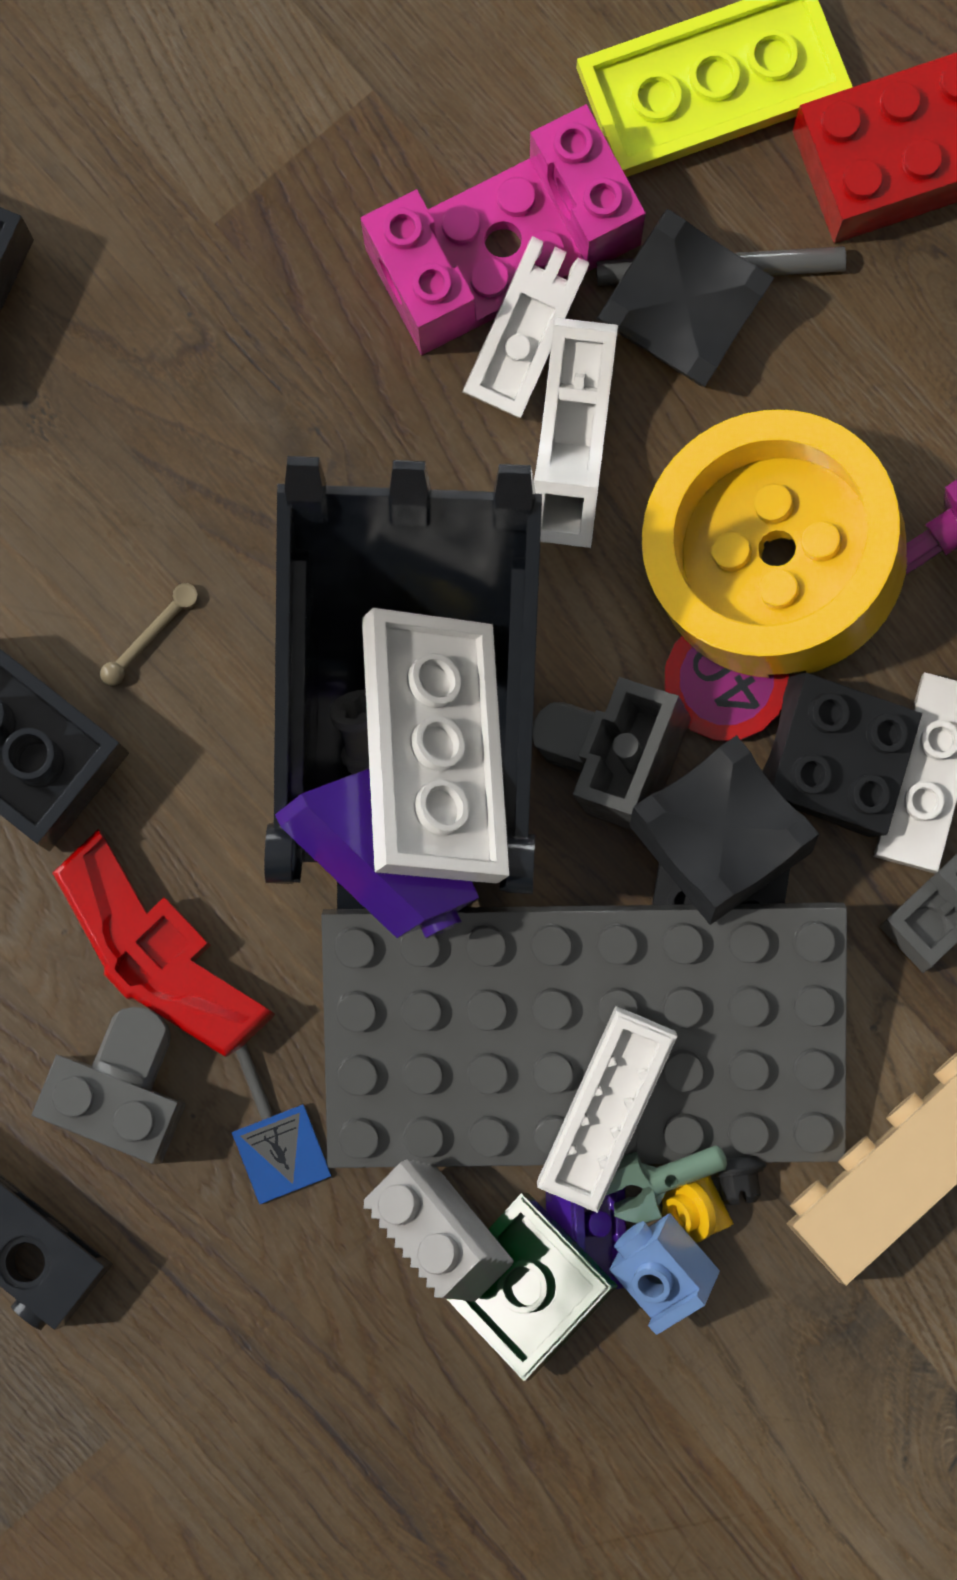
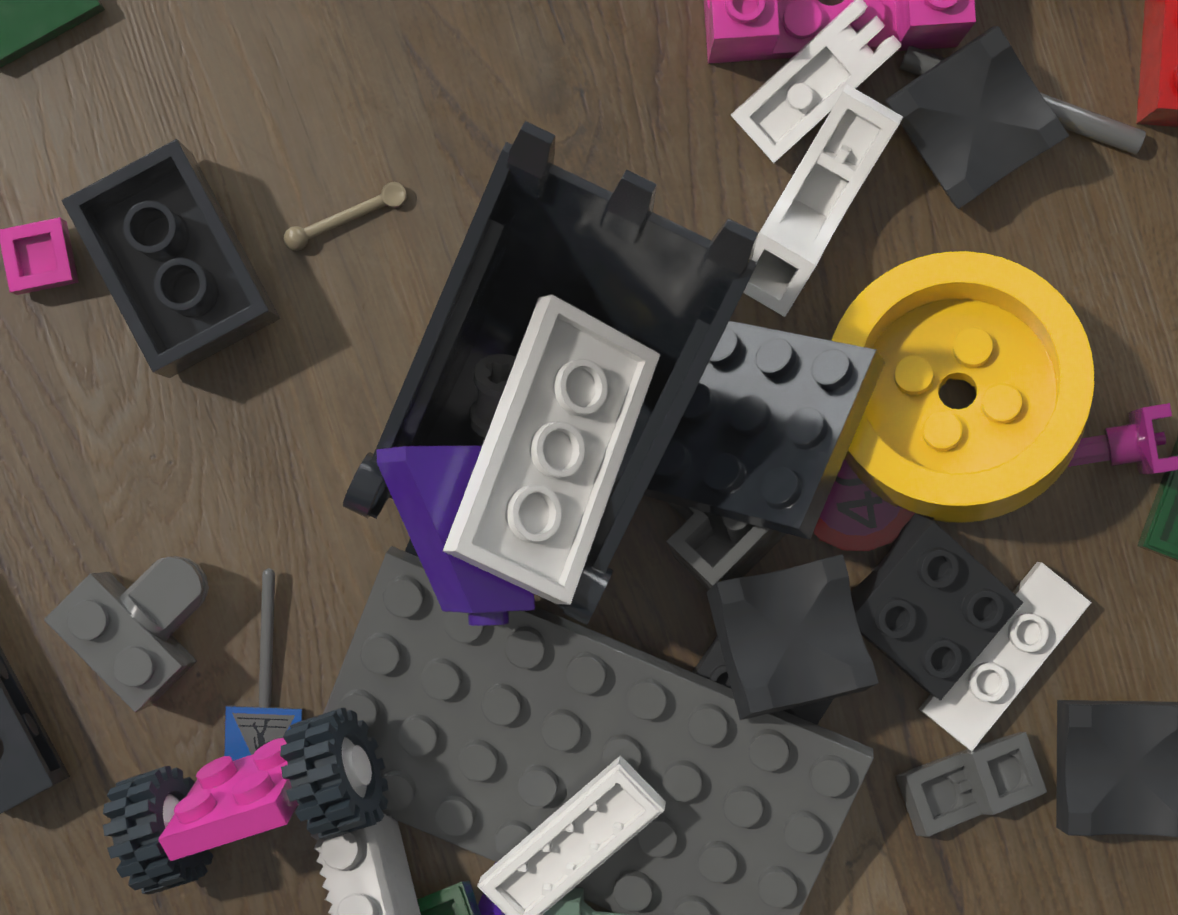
camera: 20 degrees right, 5 degrees up
(154, 952) = (223, 513): red plate -> none
(227, 1257) = (170, 822): none -> black plate
(617, 652) = (768, 428): none -> black plate

